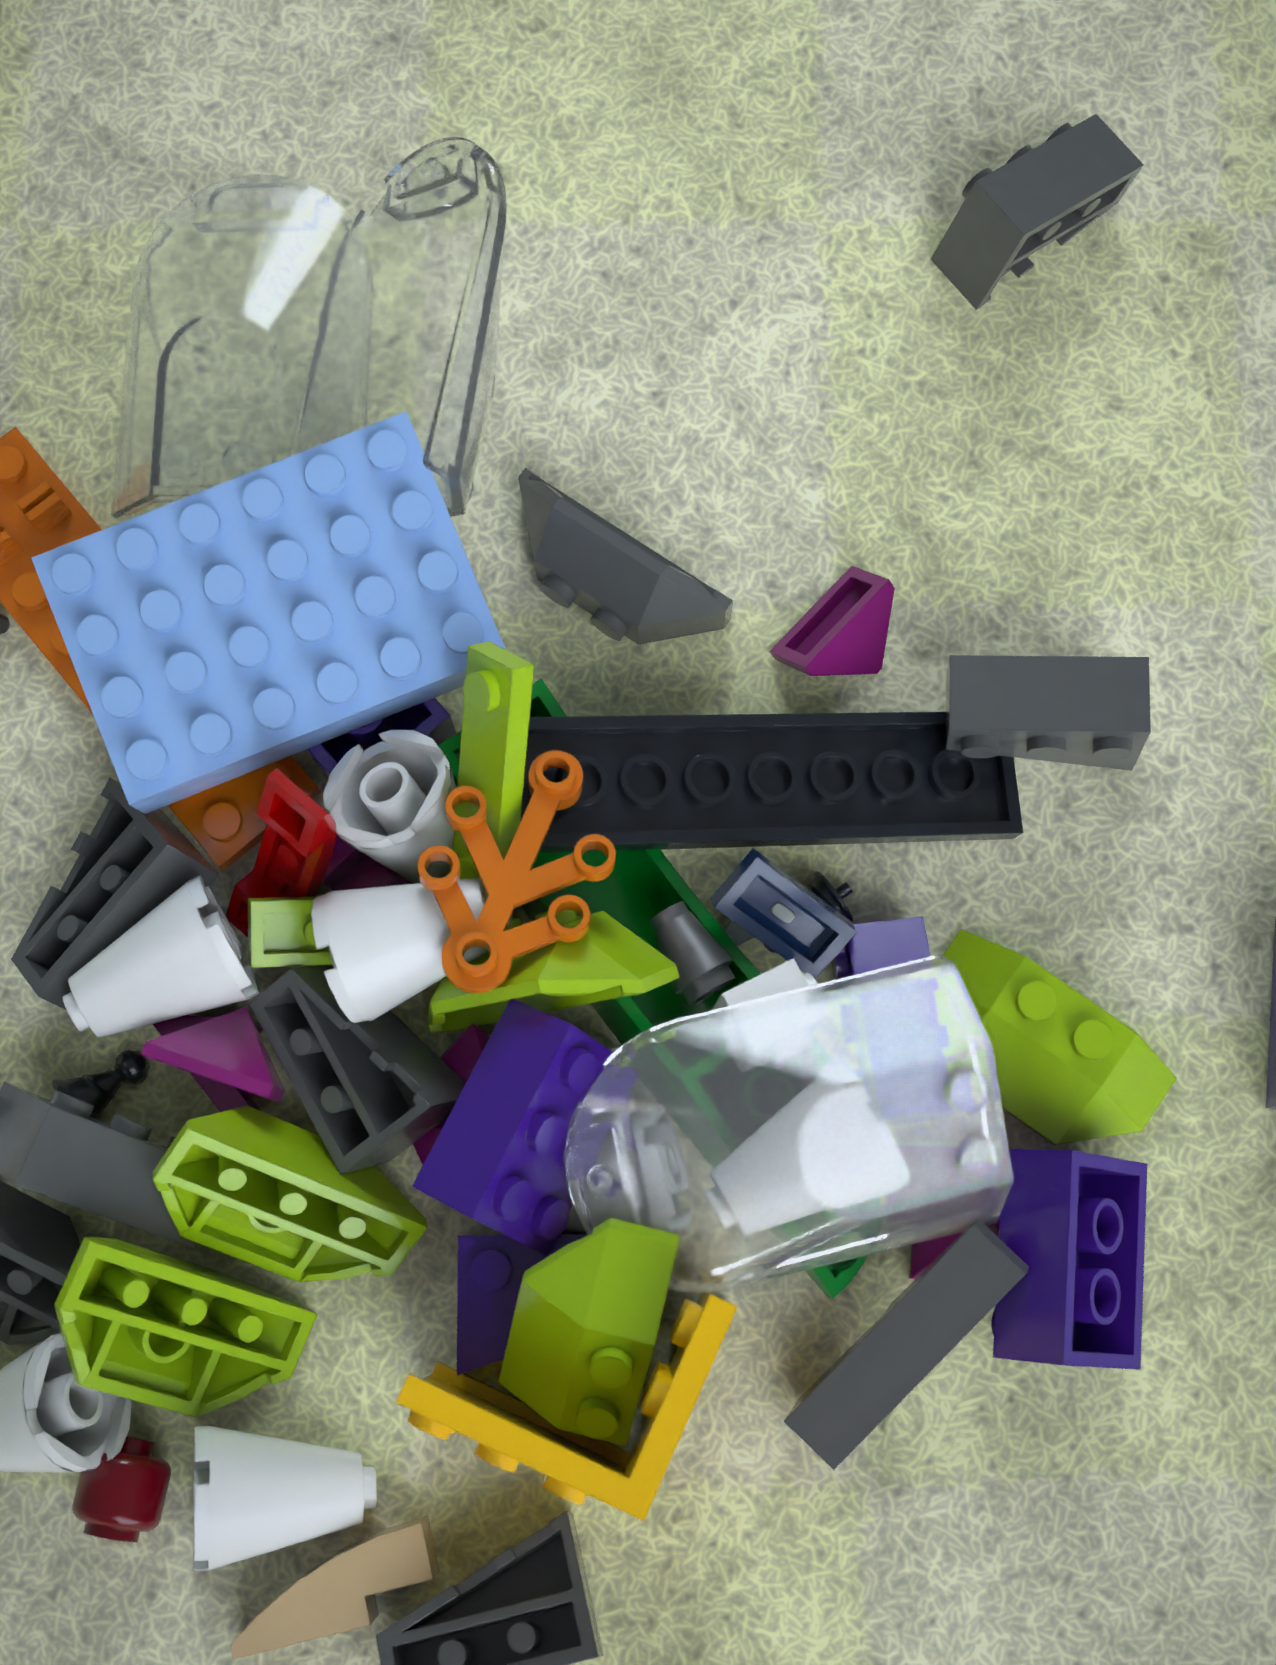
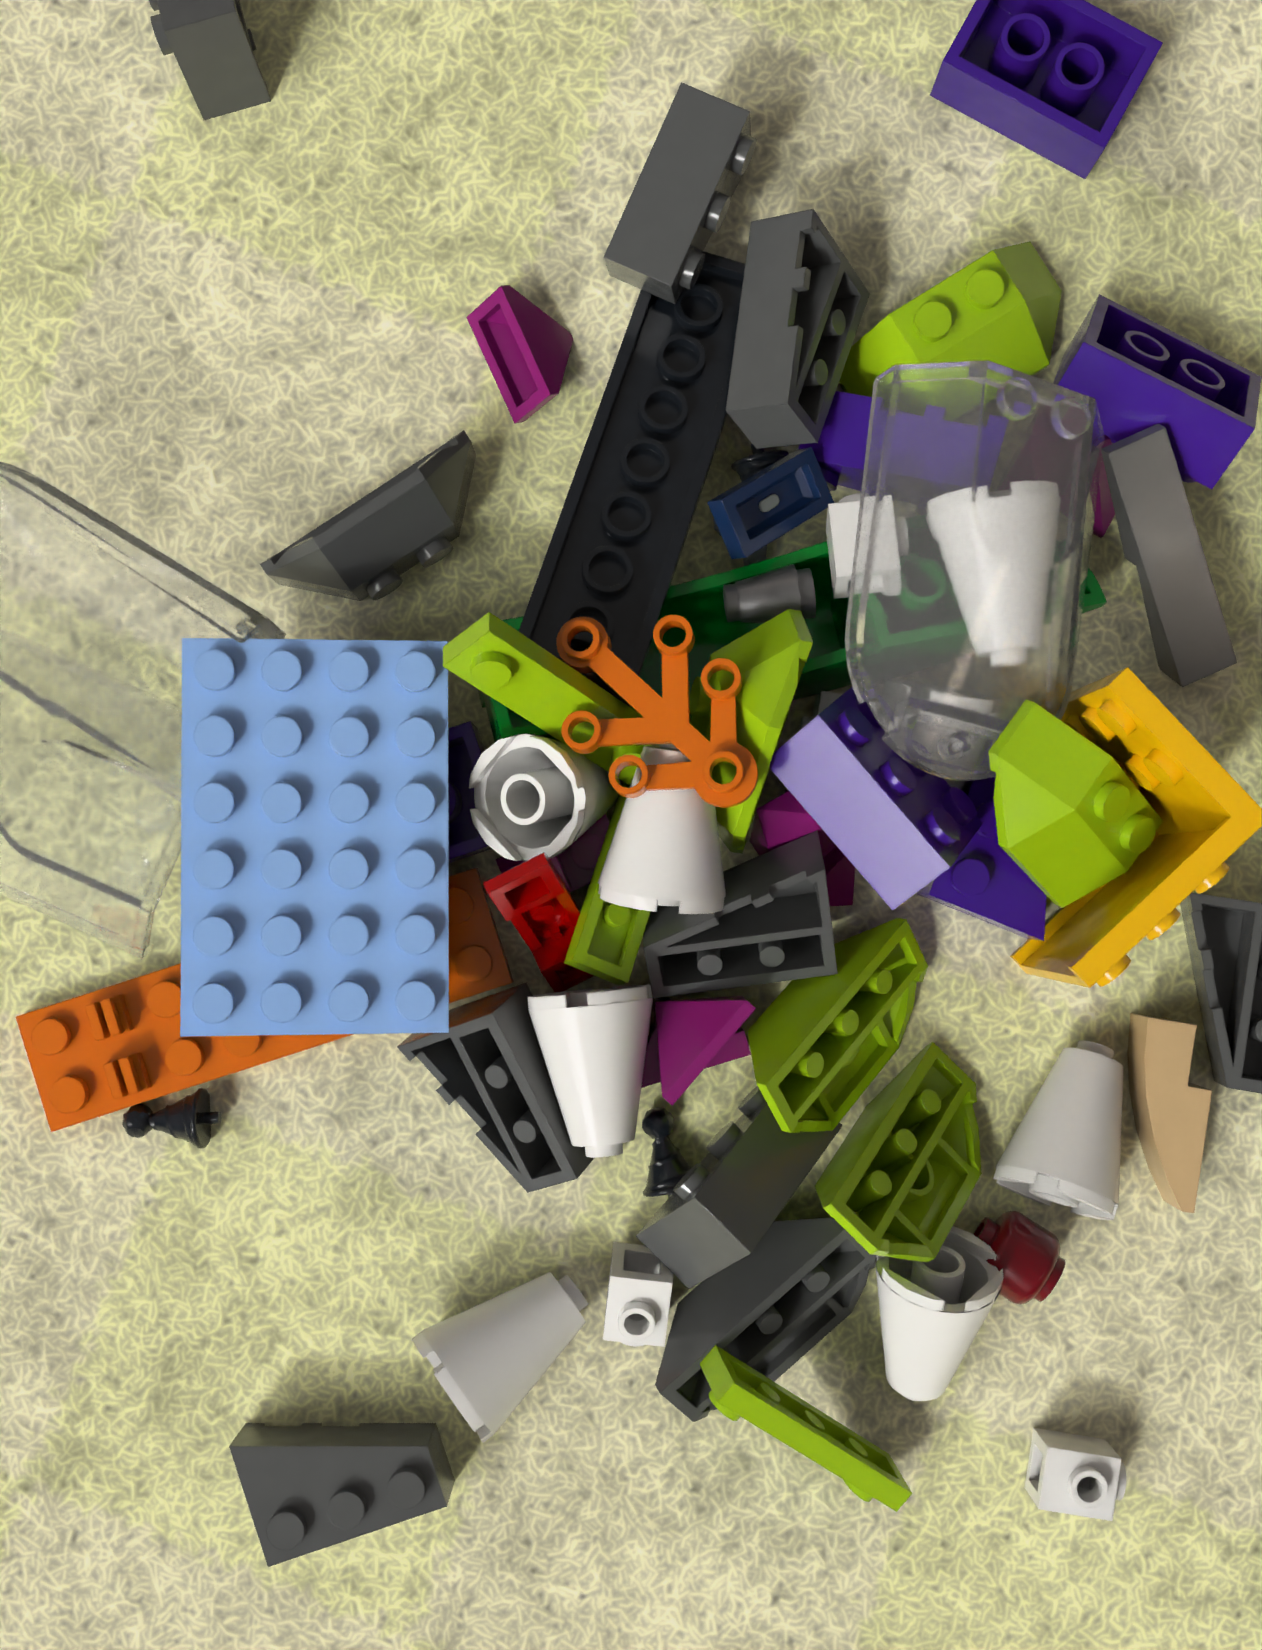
camera: 65 degrees left, 10 degrees up
(963, 867) = (792, 330): none -> dark grey wedge

